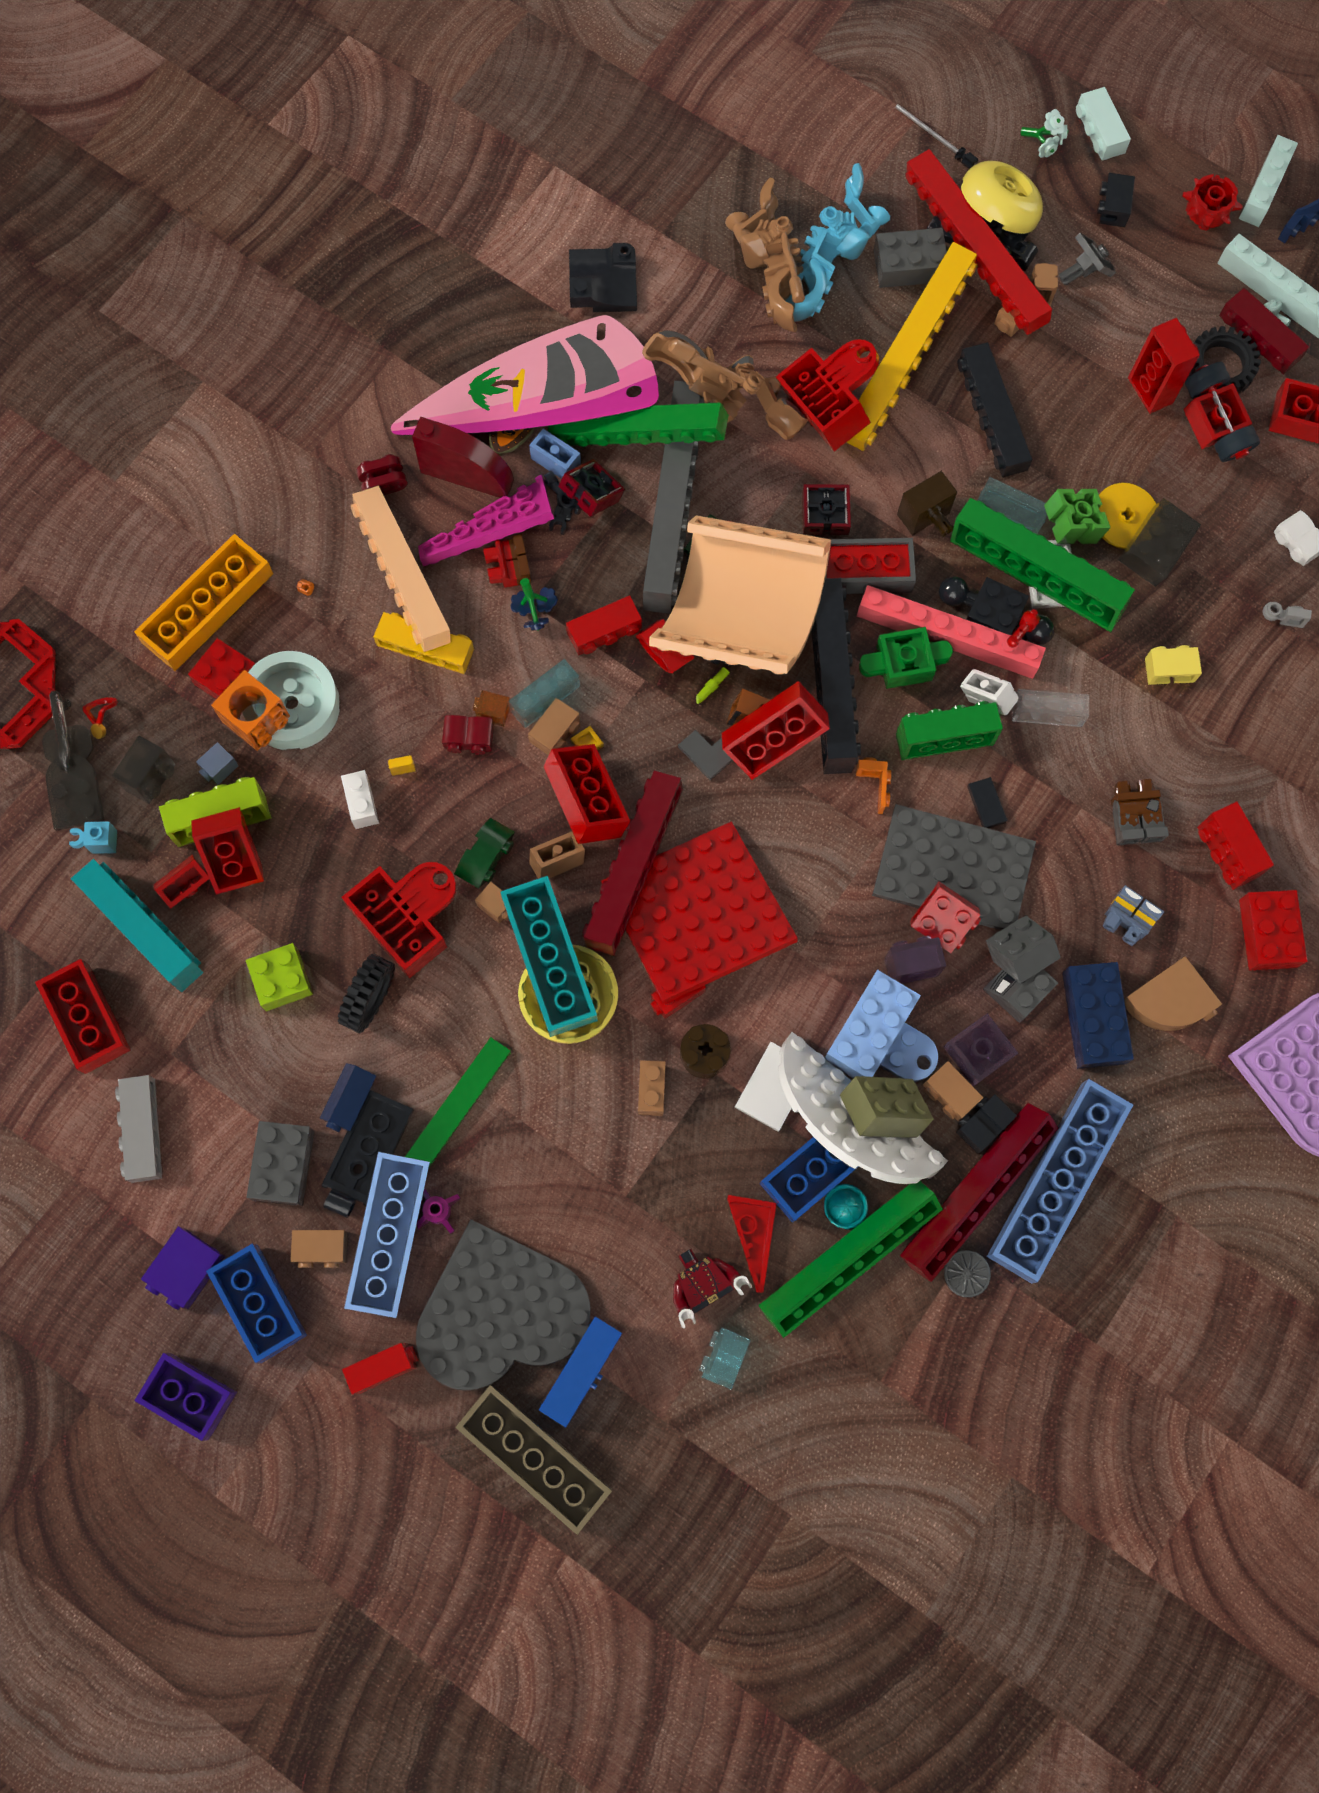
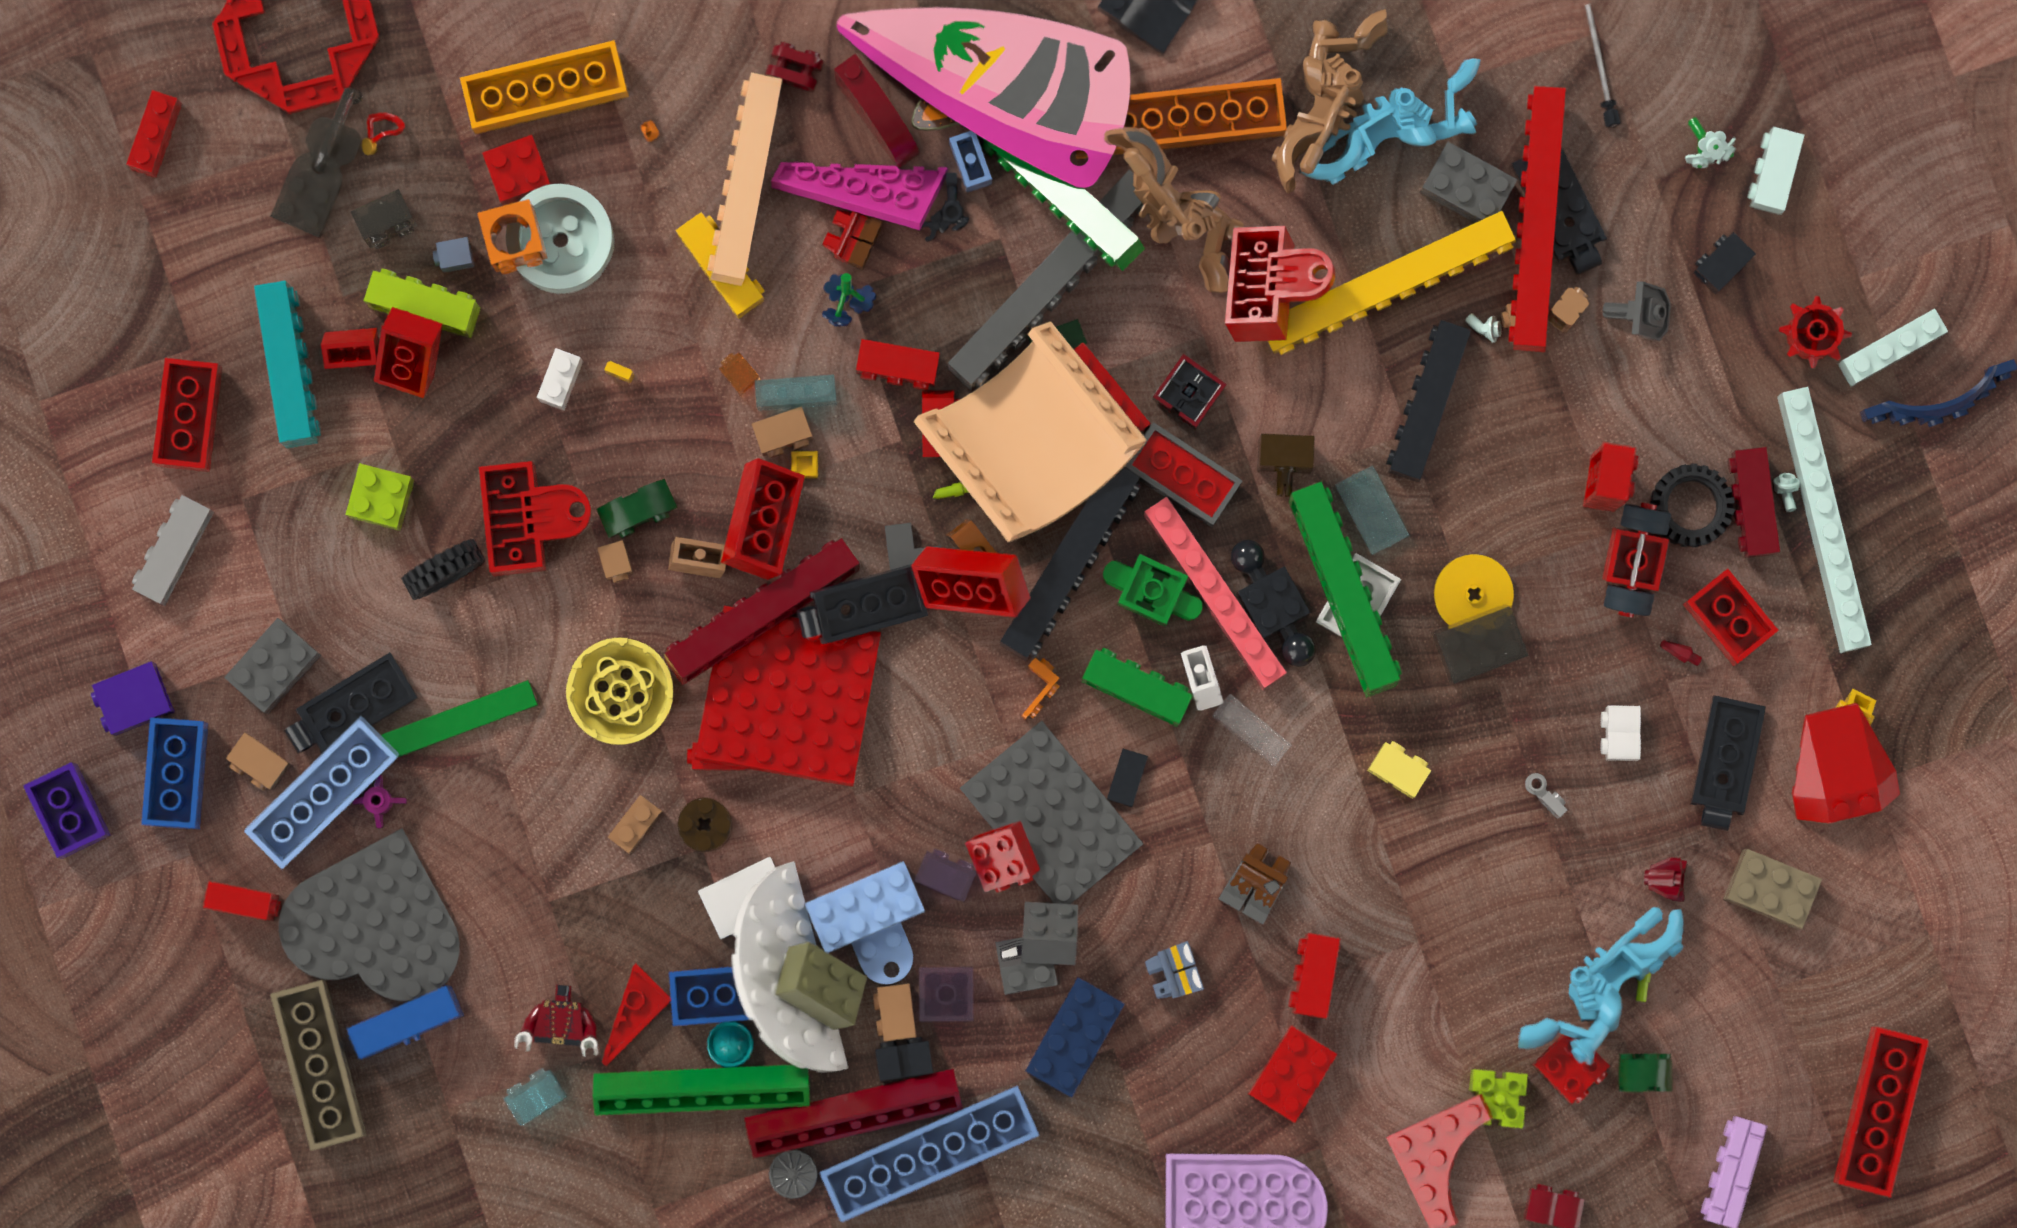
camera: 35 degrees right, 10 degrees up
(97, 837) = (302, 252): medium azure brick -> none
(347, 1098) = (367, 648): dark blue brick -> none
(467, 734) = (700, 383): dark red brick -> none
(549, 956) = (622, 648): teal brick -> none
(591, 487) = (981, 218): piece -> none
(706, 316) = (1208, 114): none -> orange brick
(712, 800) = (873, 604): none -> black hinge
(997, 339) = (1490, 329): none -> light aqua plate
(1003, 195) = (1601, 205): light yellow brick -> none
(1027, 624) = (1288, 638): red piece -> none
(1077, 516) = (1415, 550): bright green brick -> none
(1173, 999) = (1154, 1070): medium nougat brick -> none
(1294, 460) = (1681, 652): none -> dark red bar

